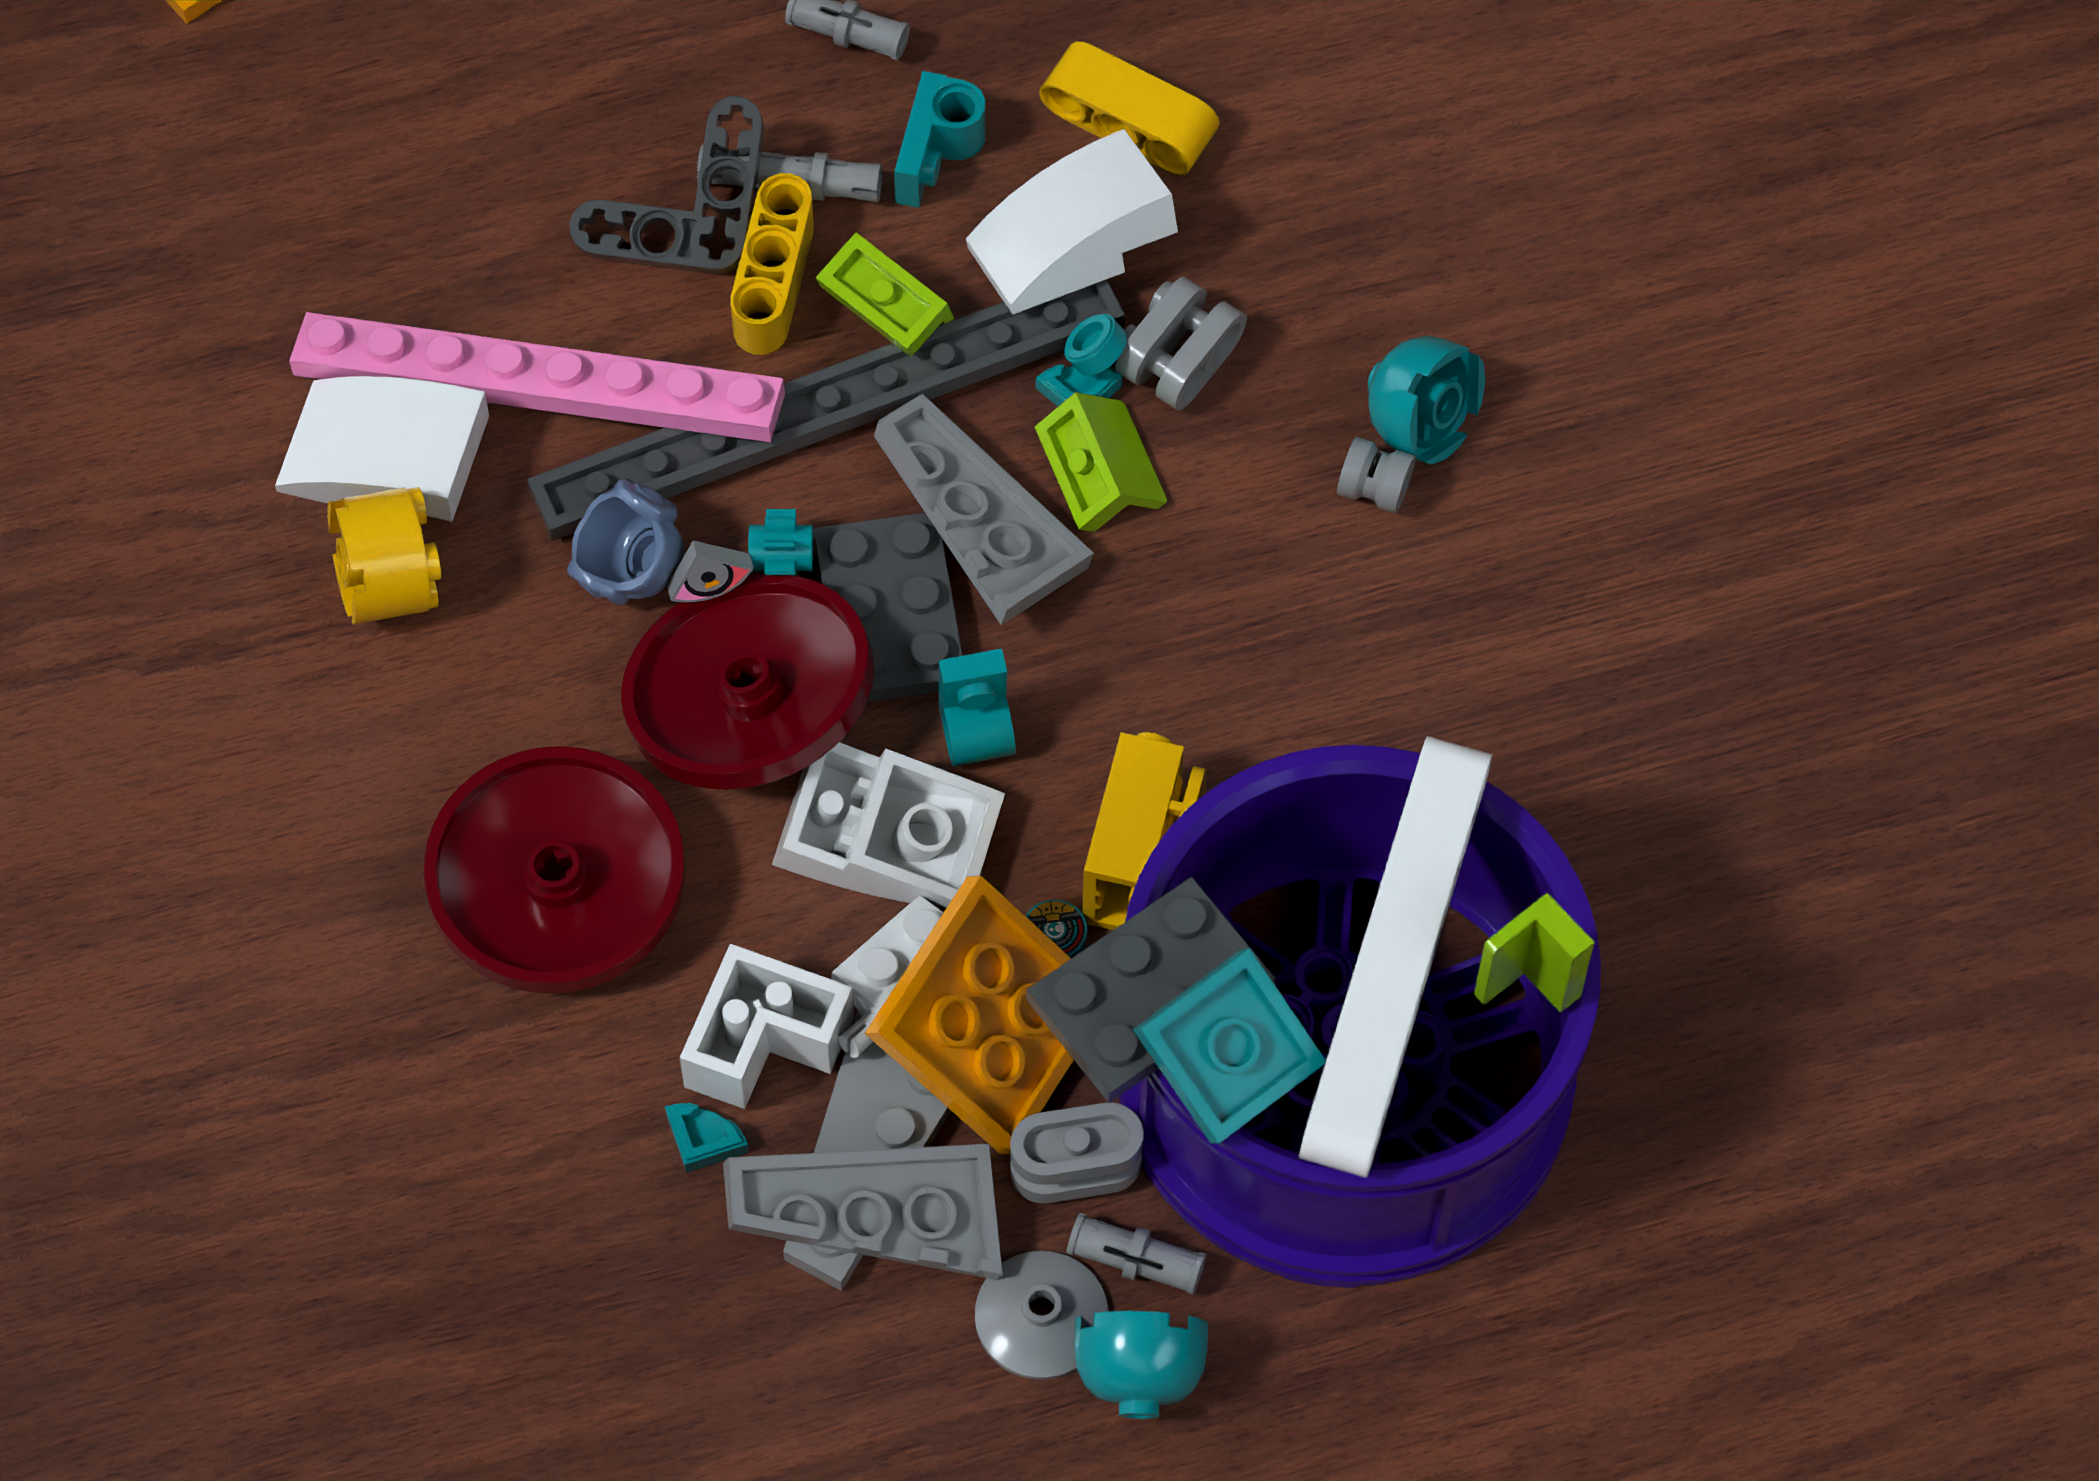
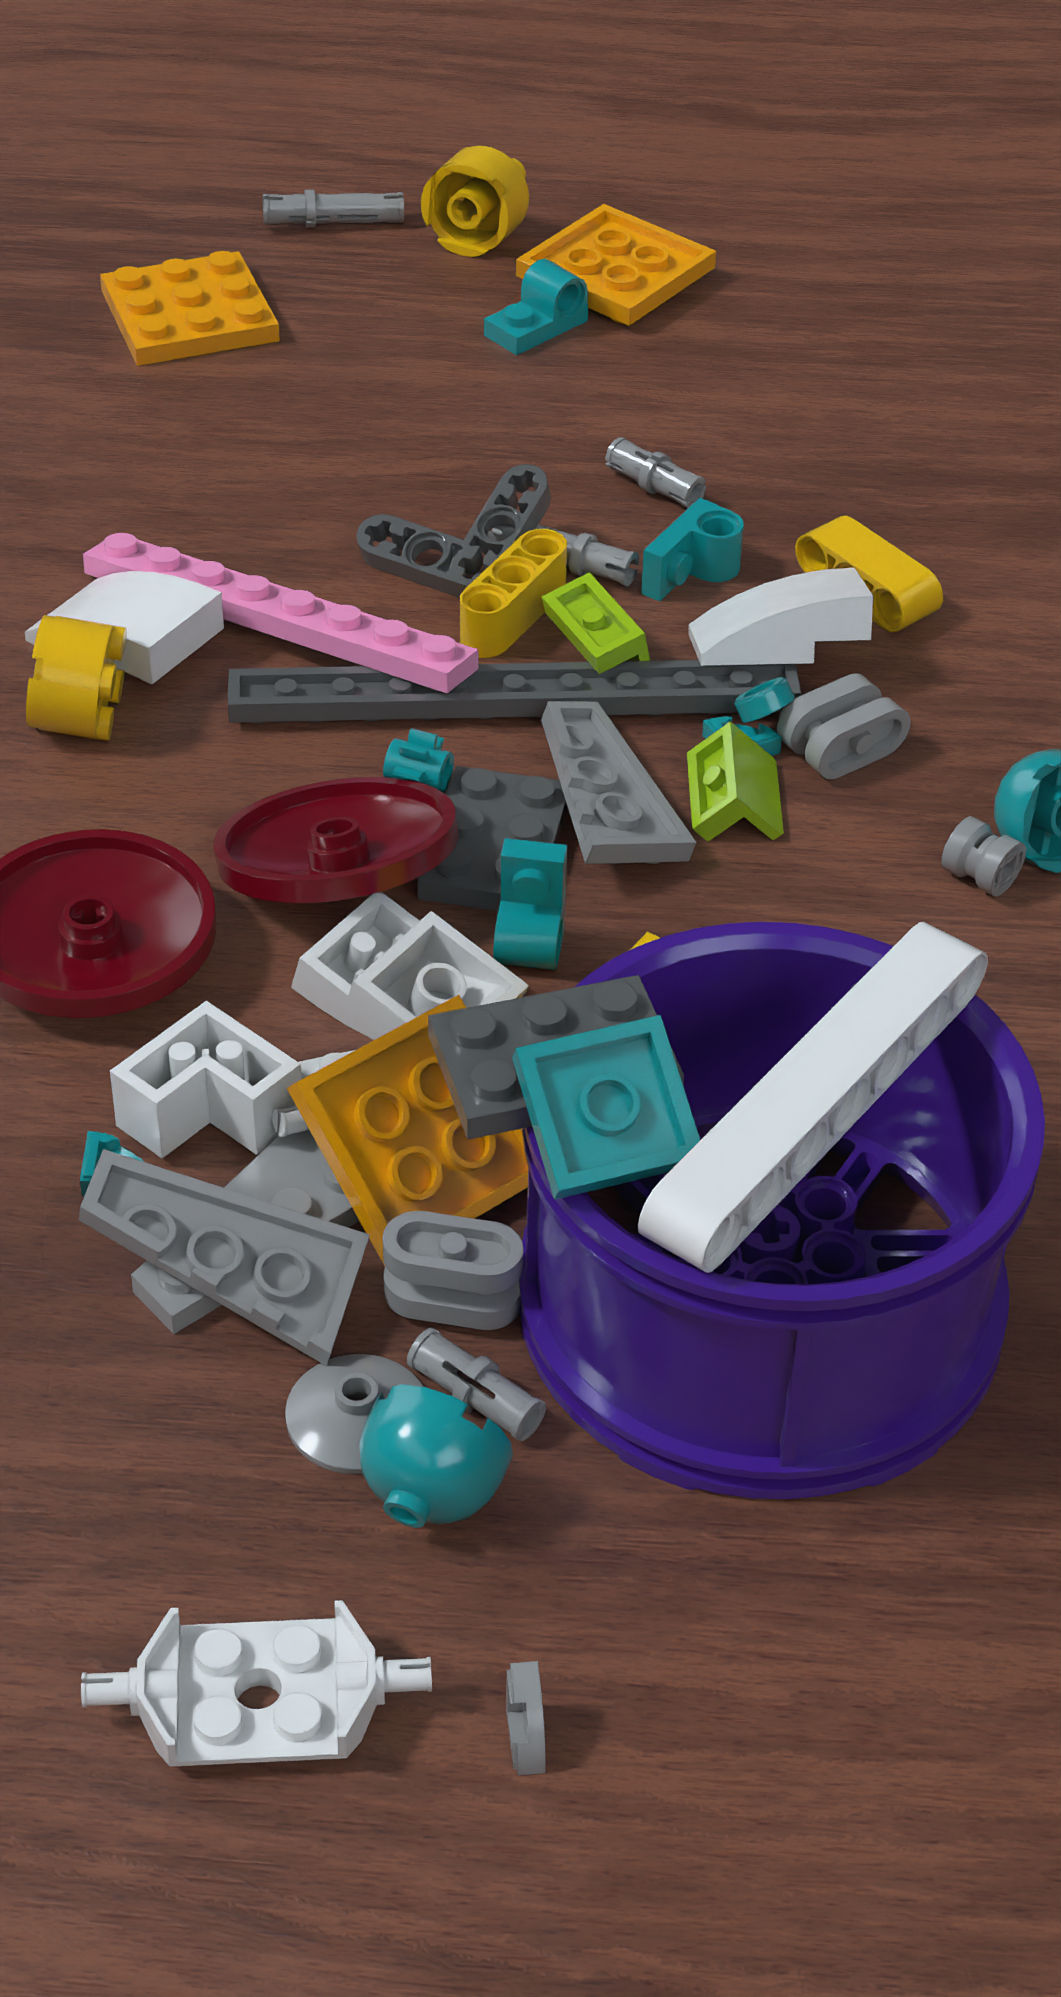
camera: 20 degrees right, 20 degrees down
(626, 544) = (285, 725): sand blue hair -> none
(708, 572) = (343, 758): light grey tile -> none
(1543, 947) = (961, 1105): lime panel -> none

